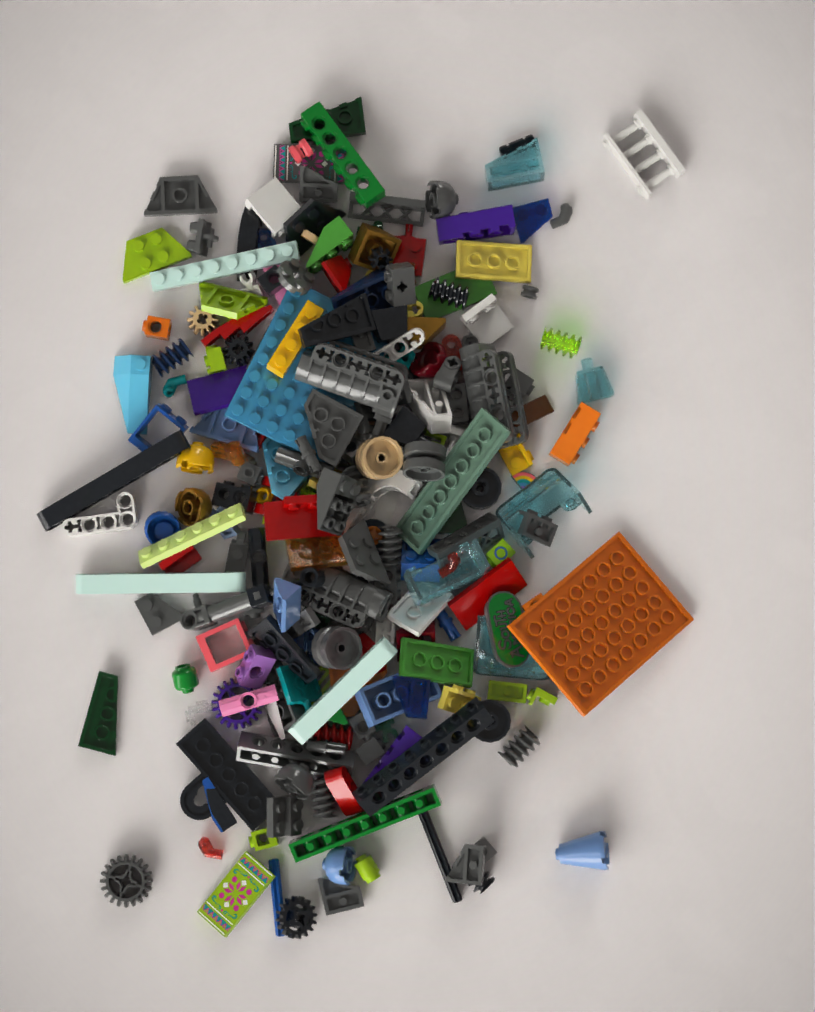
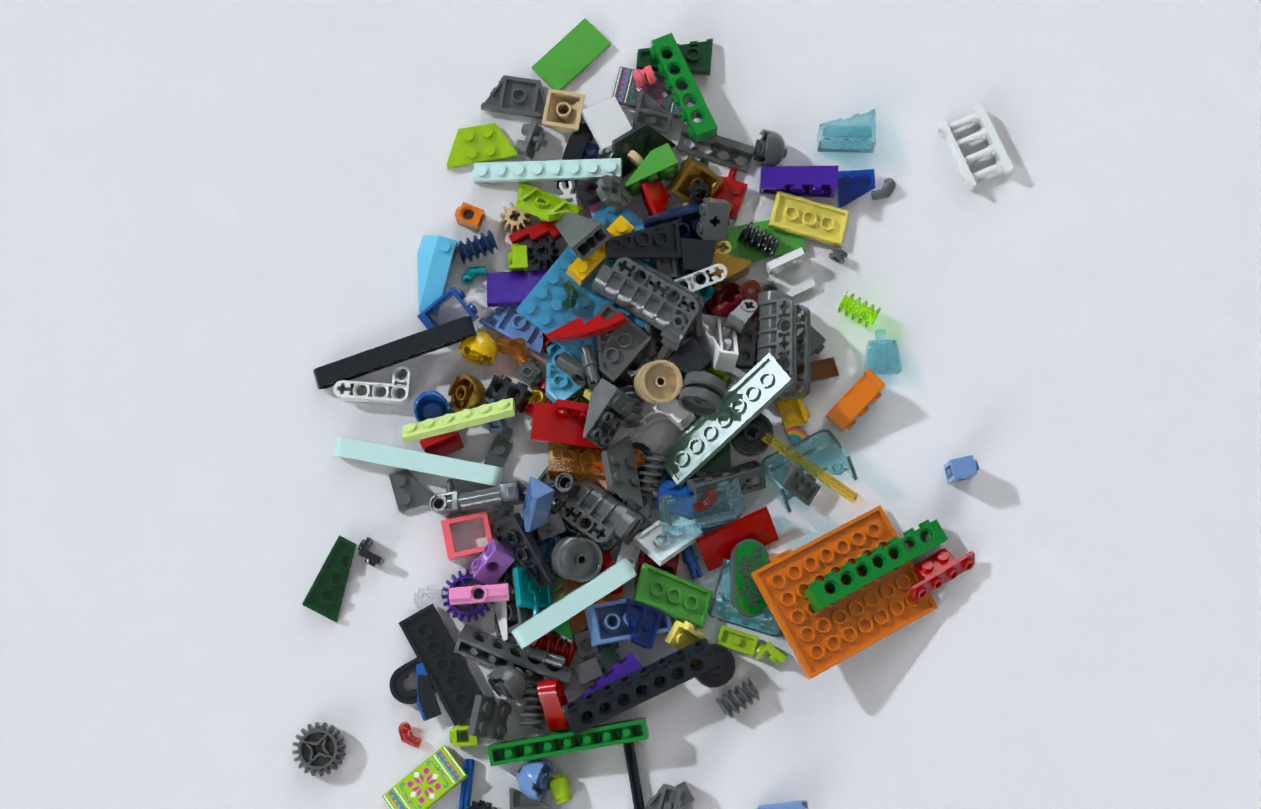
camera: 15 degrees right, 5 degrees down
(135, 686) = (371, 558): none -> black bracket
(185, 678) = (421, 560): green head -> none
(223, 143) = (571, 55): none -> bright green tile
(227, 202) = (563, 111): none -> tan slope
(257, 543) = (521, 443): black piece -> none
(273, 327) = (582, 234): none -> dark grey slope
(277, 390) = (572, 296): none -> clear green arm
(291, 422) = (580, 330): none -> red slope
(499, 553) = (757, 501): lime brick -> none
(515, 144) = (849, 113): black axle -> none
(543, 509) = (809, 466): none -> clear yellow axle
(676, 551) = (929, 530): none -> green brick
(687, 583) = (938, 570): none -> red bracket
(690, 480) = (961, 469): none -> medium blue brick

